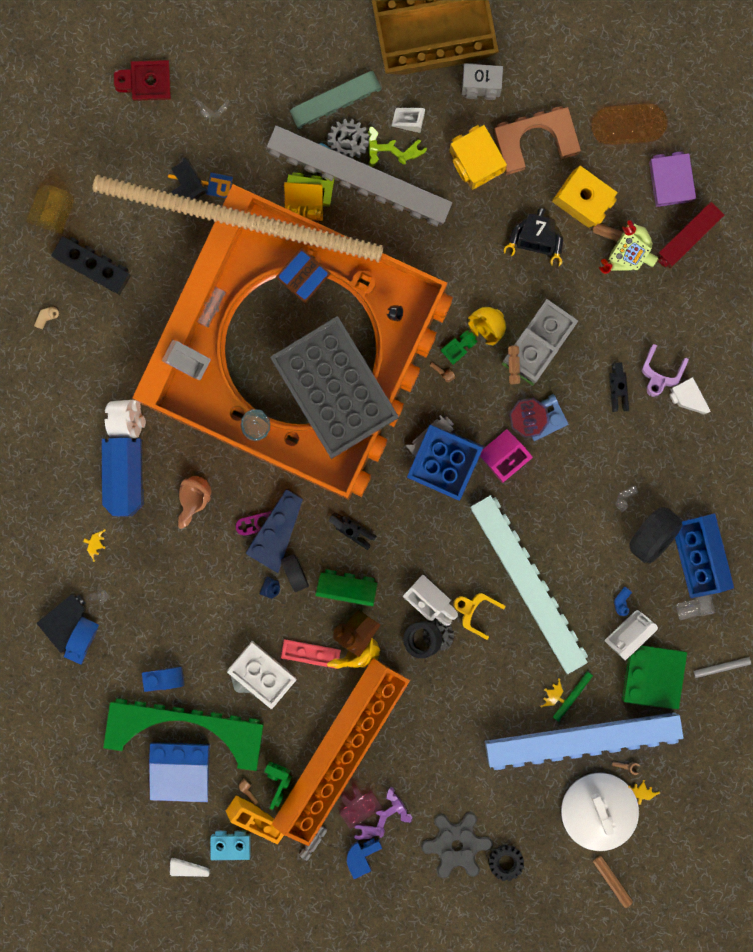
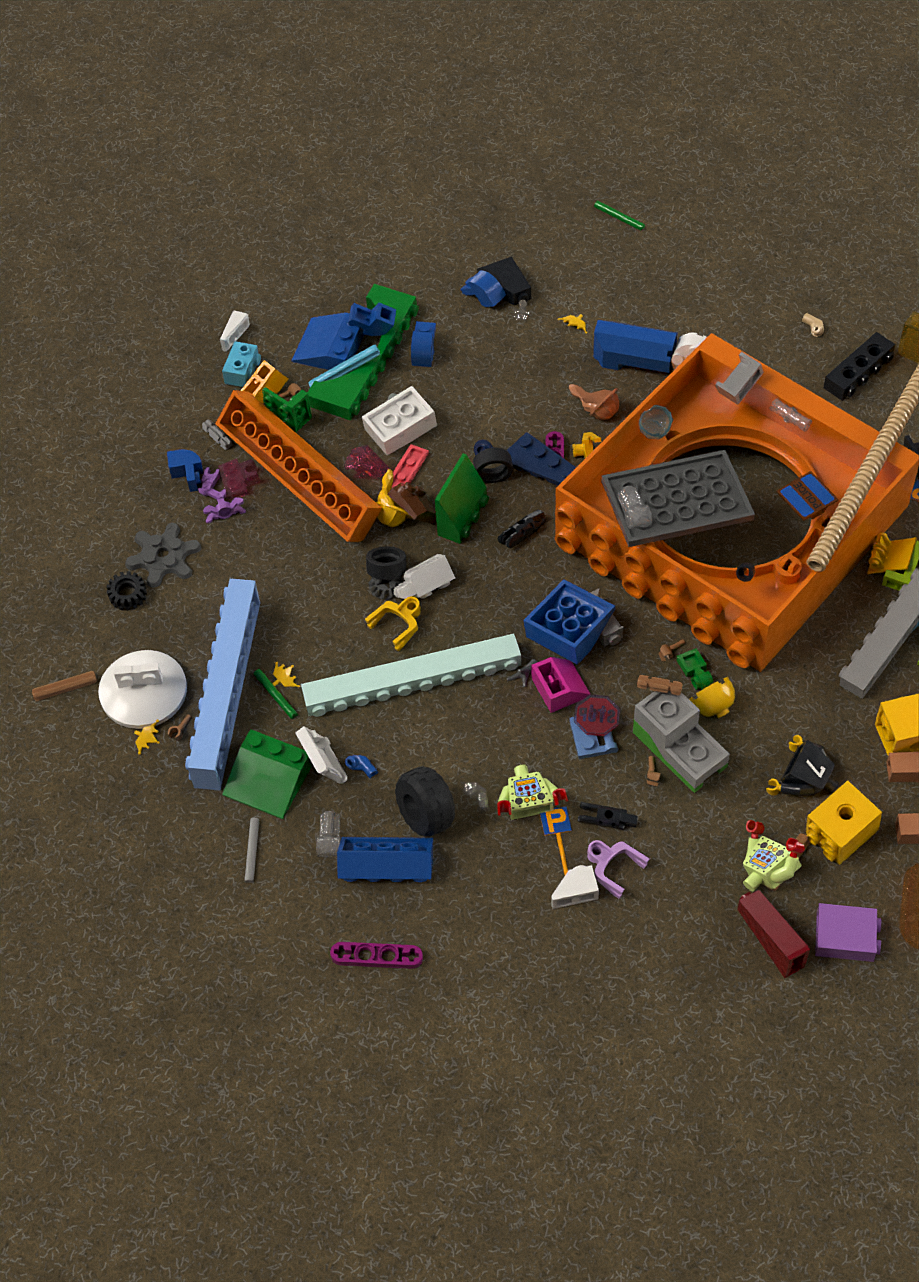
camera: 105 degrees right, 30 degrees down
(157, 733) = (374, 321): none -> blue brick
(215, 745) = (348, 365): none -> medium azure axle
(258, 488) = (587, 445): none -> yellow piece
(320, 693) = (365, 462): none -> clear pink plate
(370, 417) = (635, 512): none -> clear piece
(498, 490) = (523, 673): none -> dark grey bar
(571, 359) = (651, 774): none -> medium nougat hand
(618, 456) = (528, 794): none -> torso
(631, 428) = (555, 823): none -> piece

